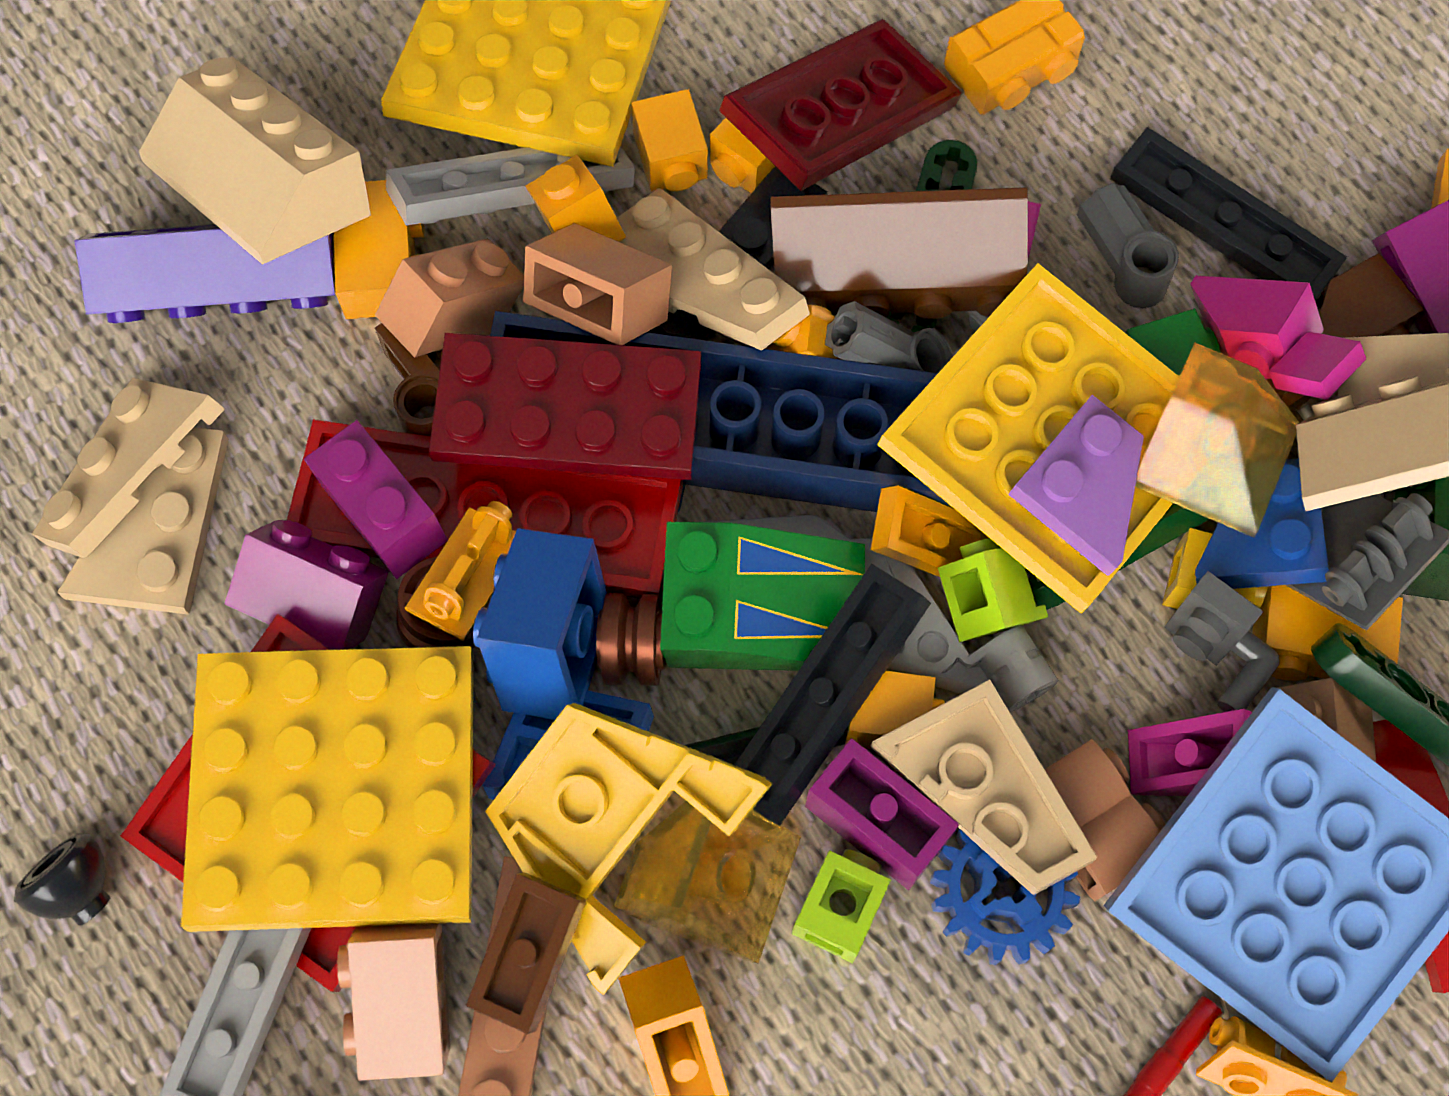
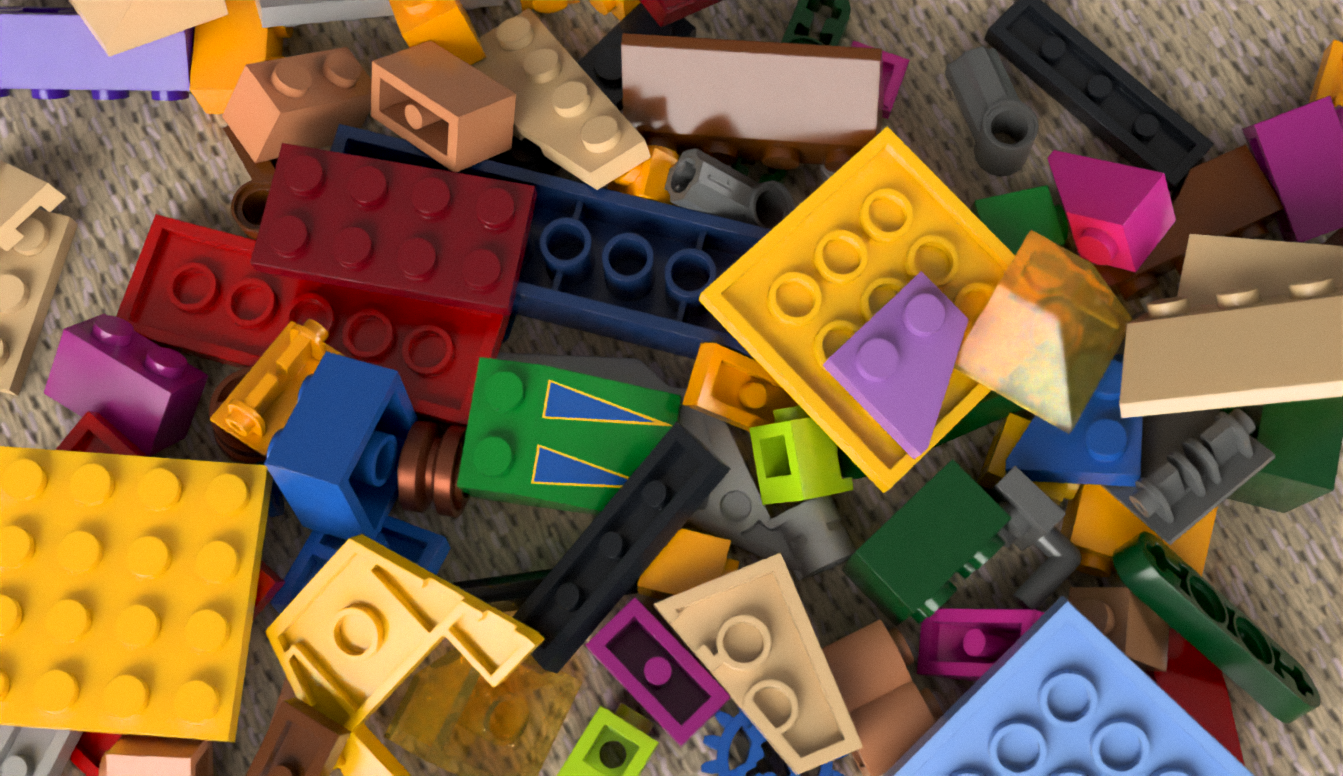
camera: 10 degrees right, 5 degrees up
(376, 499) = (197, 304): magenta brick -> none
(1129, 663) = (930, 538): none -> dark green brick
(1317, 365) = (1160, 261): dark pink tile -> none

